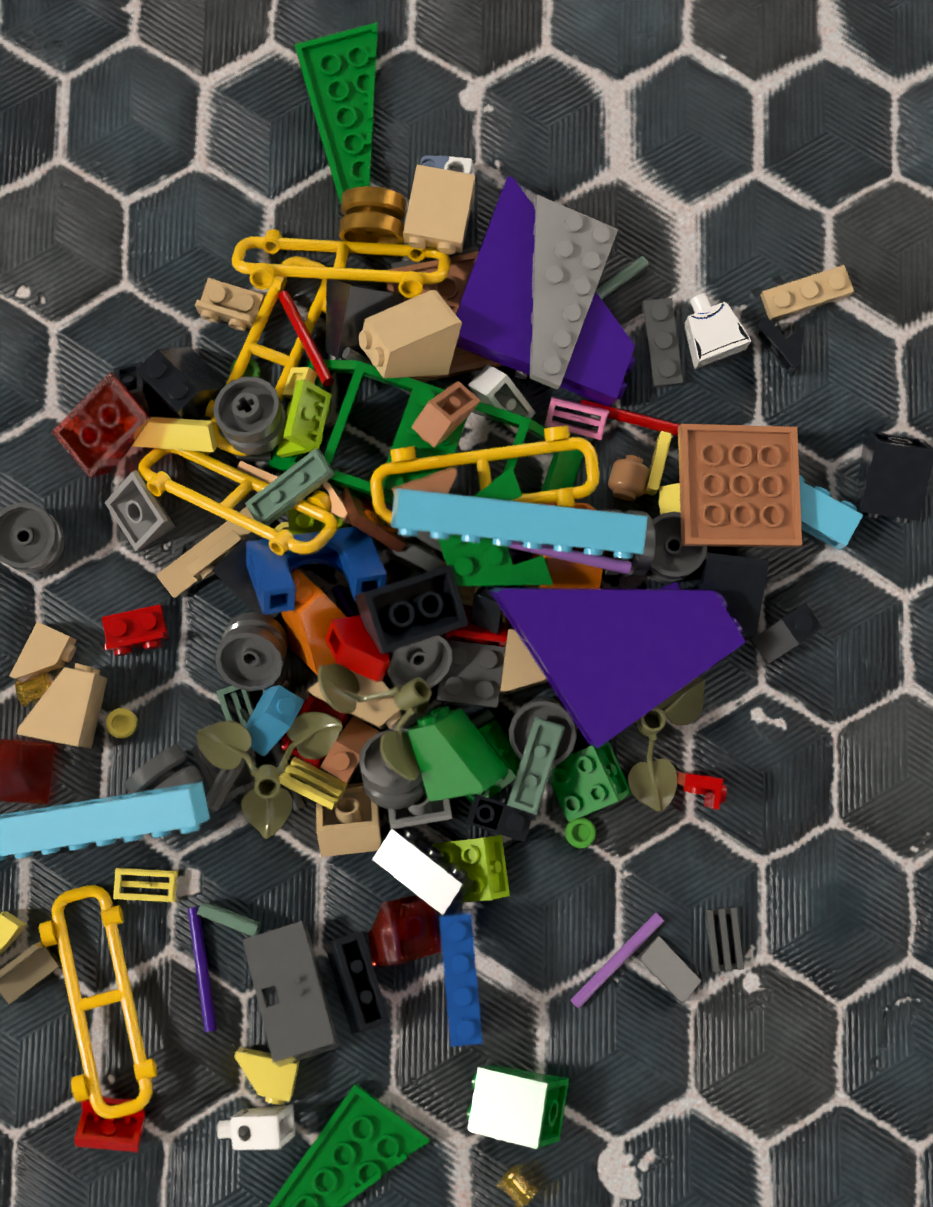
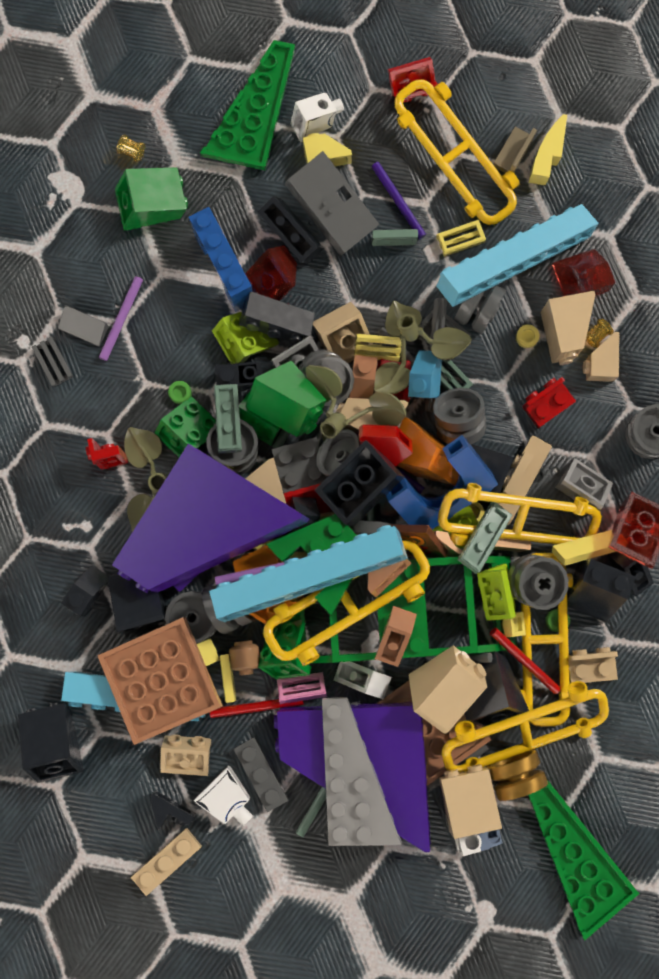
camera: 160 degrees right, 0 degrees up
(571, 468) = (288, 637): none -> green bracket
(740, 397) = (185, 755): none -> tan bracket

